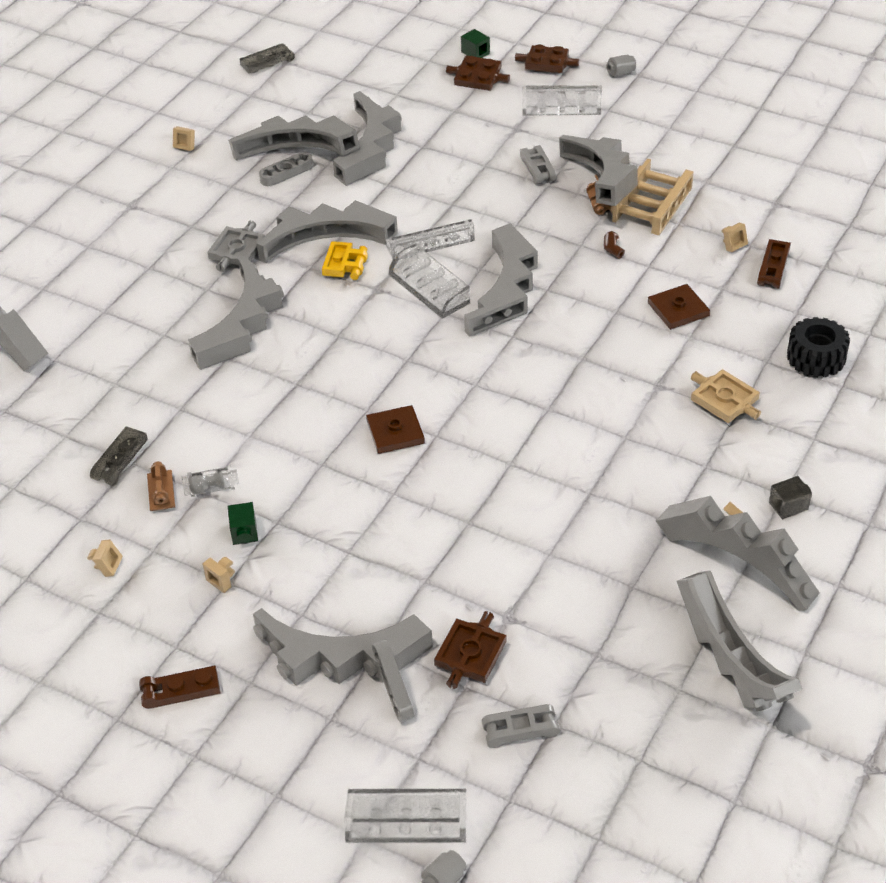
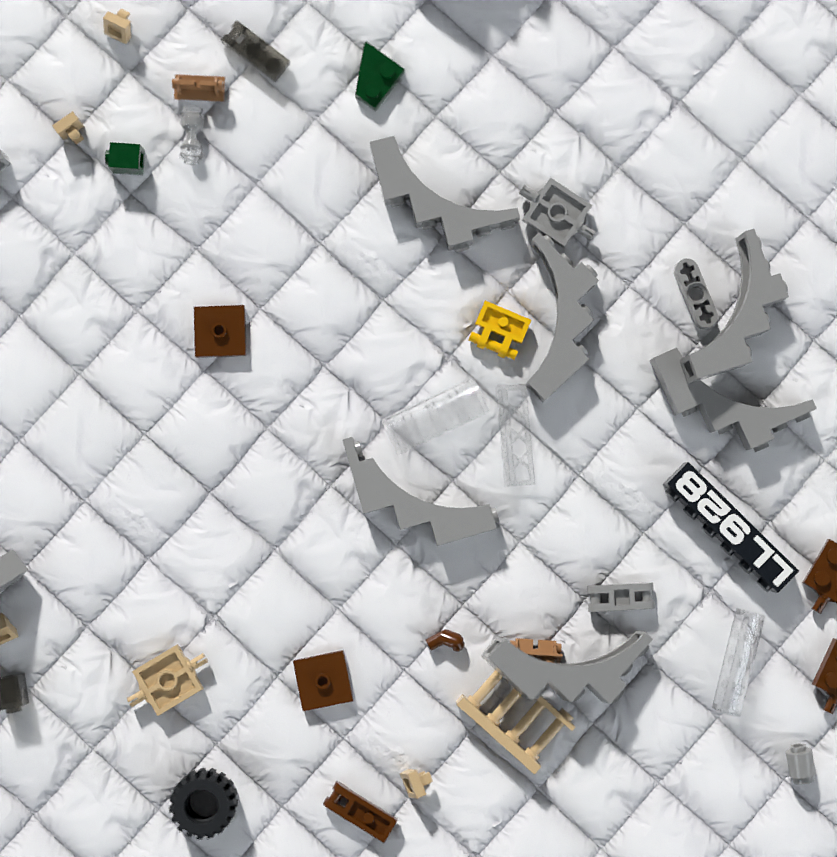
camera: 100 degrees right, 40 degrees up
(132, 374) = (376, 76): none -> dark green wing
(183, 138) = (787, 179): tan tile -> none
(462, 121) = (730, 527): none -> black brick

